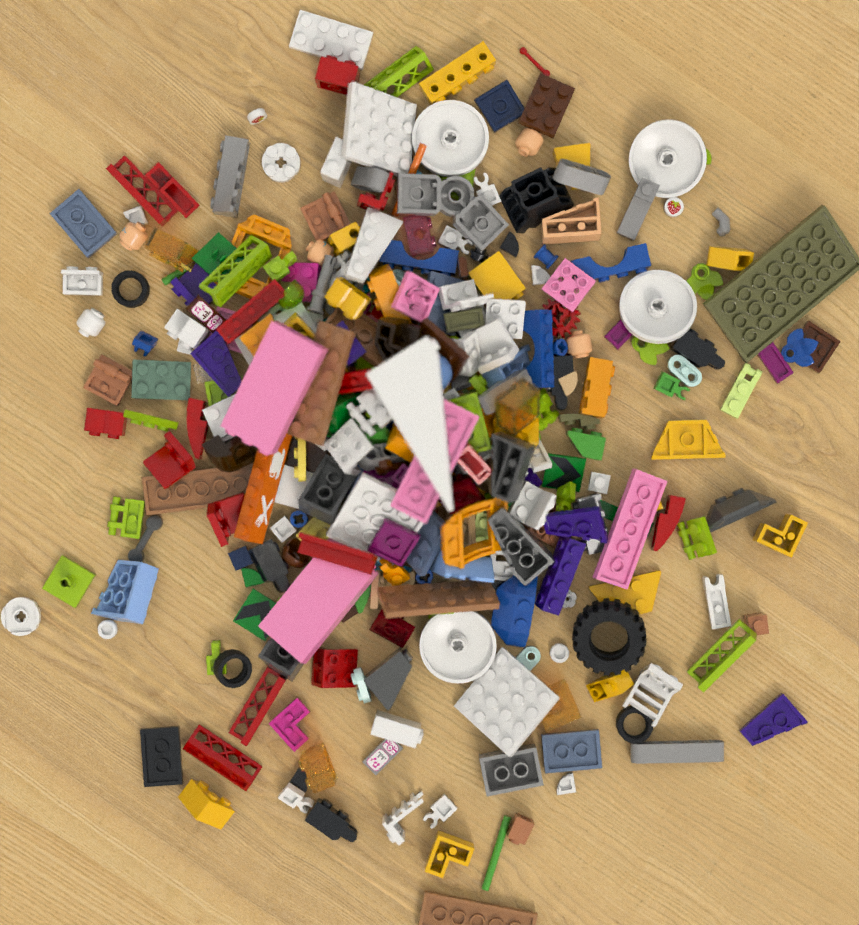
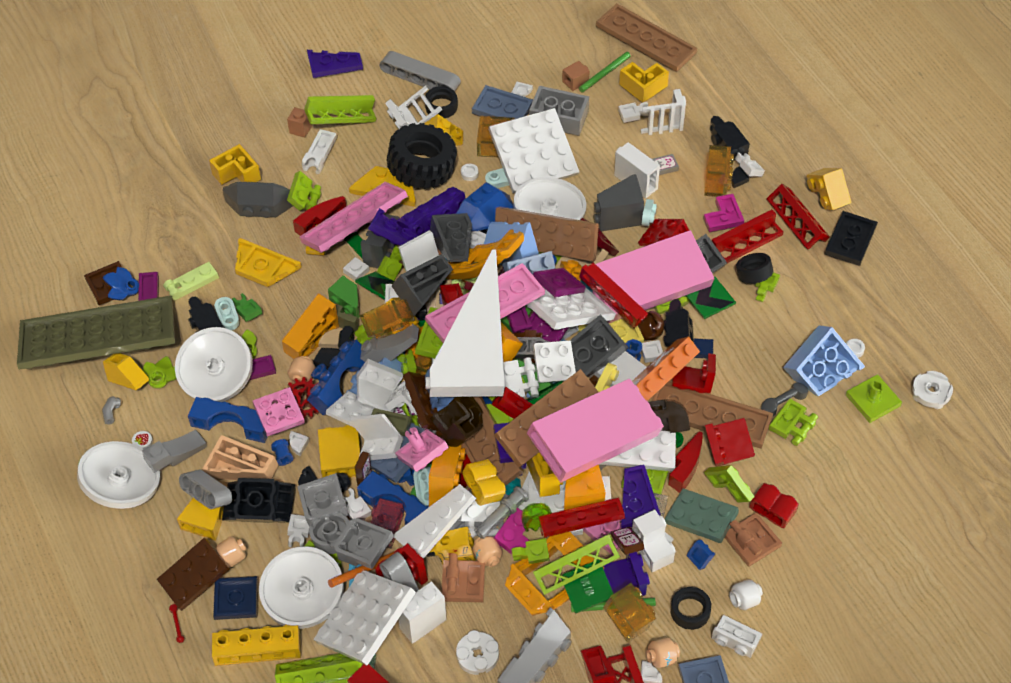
camera: 150 degrees left, 35 degrees down
(251, 577) = (701, 329): green tile -> none

